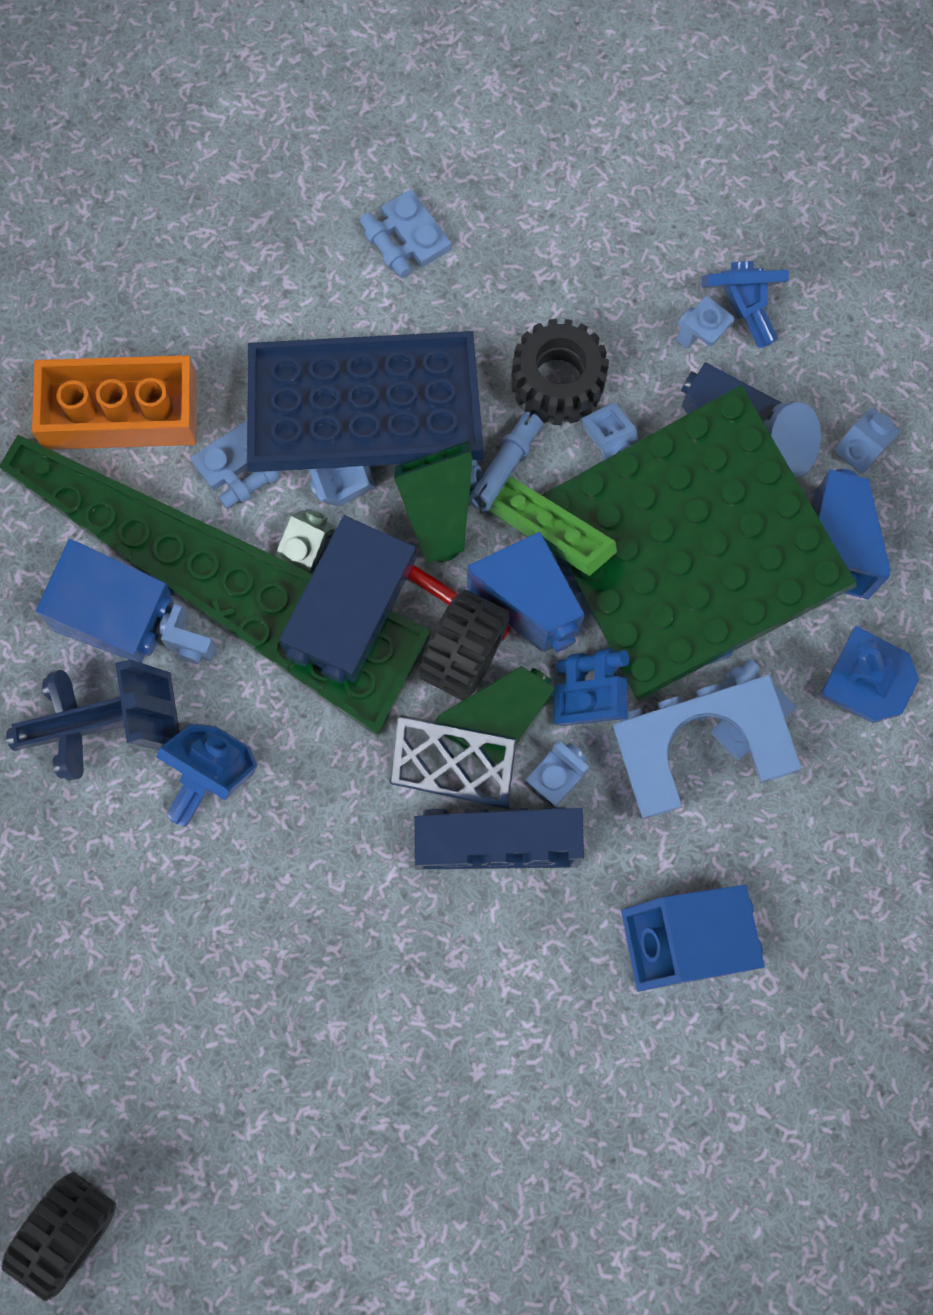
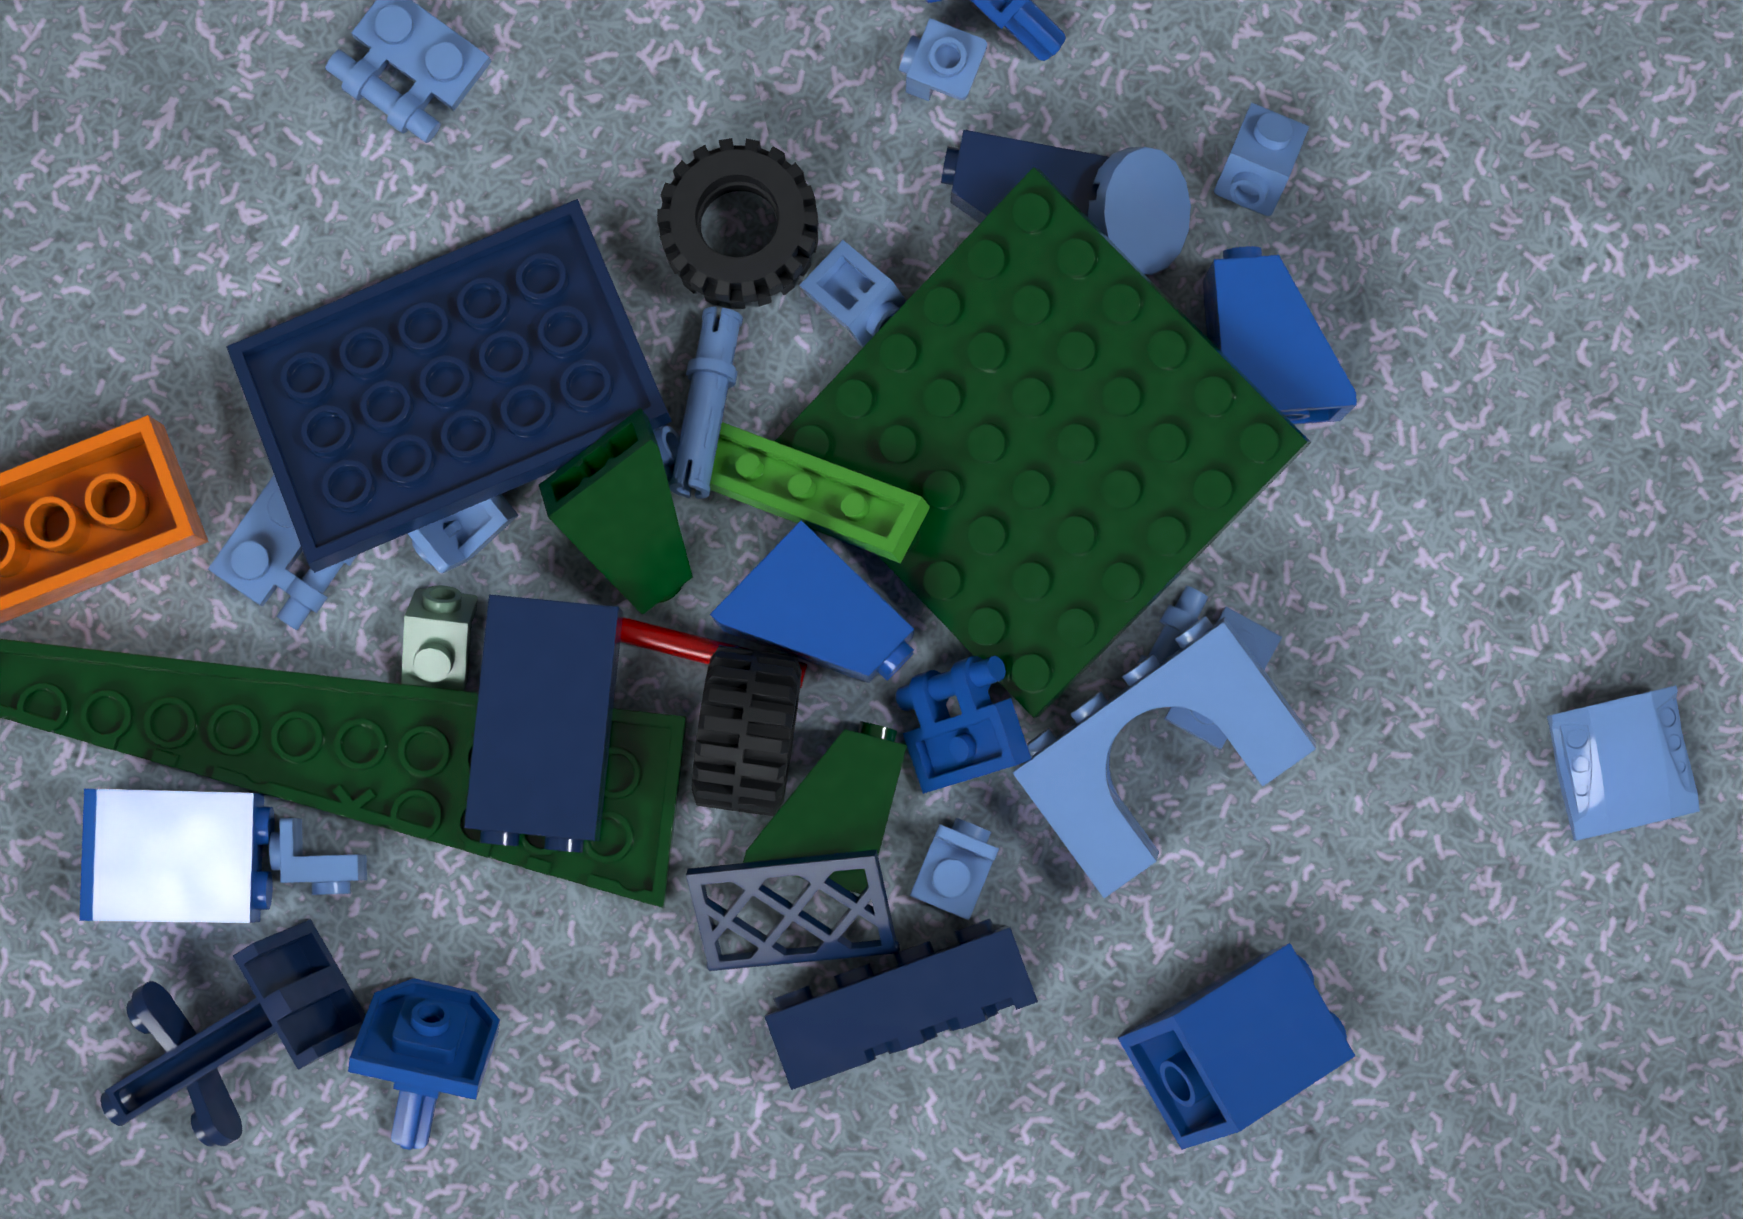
camera: 15 degrees left, 10 degrees up
(871, 678) = (1381, 550): blue piece -> none

